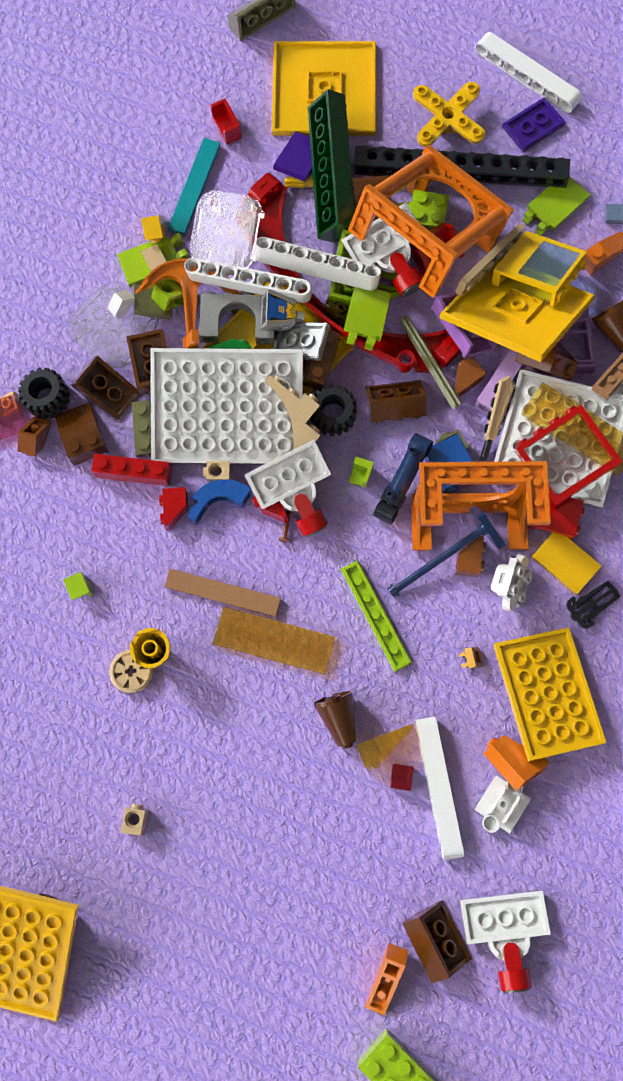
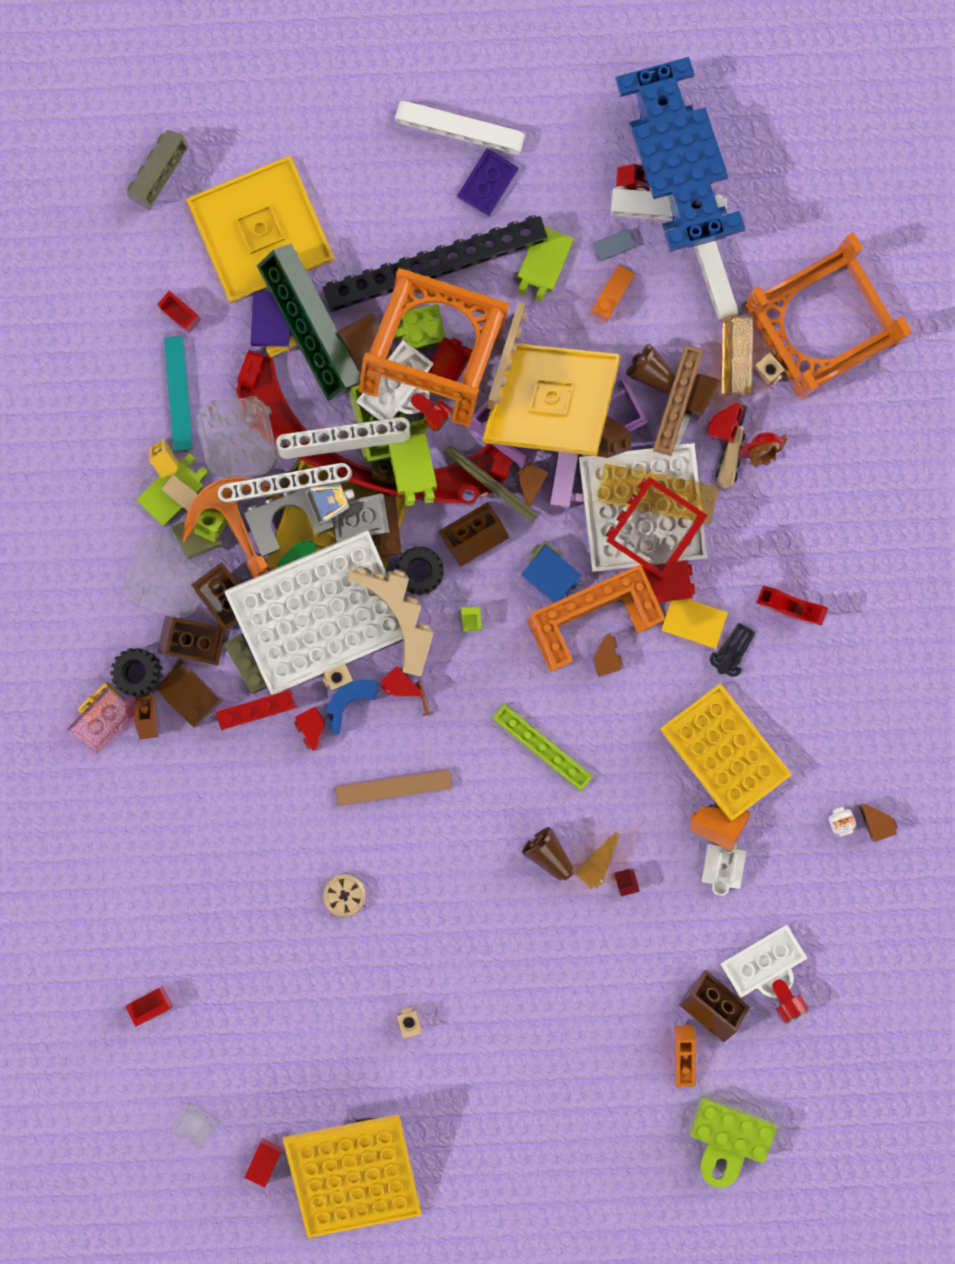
camera: 30 degrees left, 10 degrees up
(77, 586) = (259, 841): lime panel -> none
(120, 303) = (170, 554): white piece -> none
(150, 648) = (351, 877): yellow cone -> none
(274, 640) = (460, 810): clear yellow tile -> none
(292, 483) = (415, 662): white plate -> none
(394, 495) = (514, 609): dark blue piece -> none
(439, 788) = (663, 876): white beam -> none
(449, 114) = (403, 203): yellow piece -> none
(473, 657) = (646, 748): tile -> none
(485, 528) = (607, 626): dark blue tile -> none
(499, 405) = (573, 500): tan sword -> none
(512, 581) = (653, 664): white piece -> none
(541, 264) = (557, 343): panel -> none

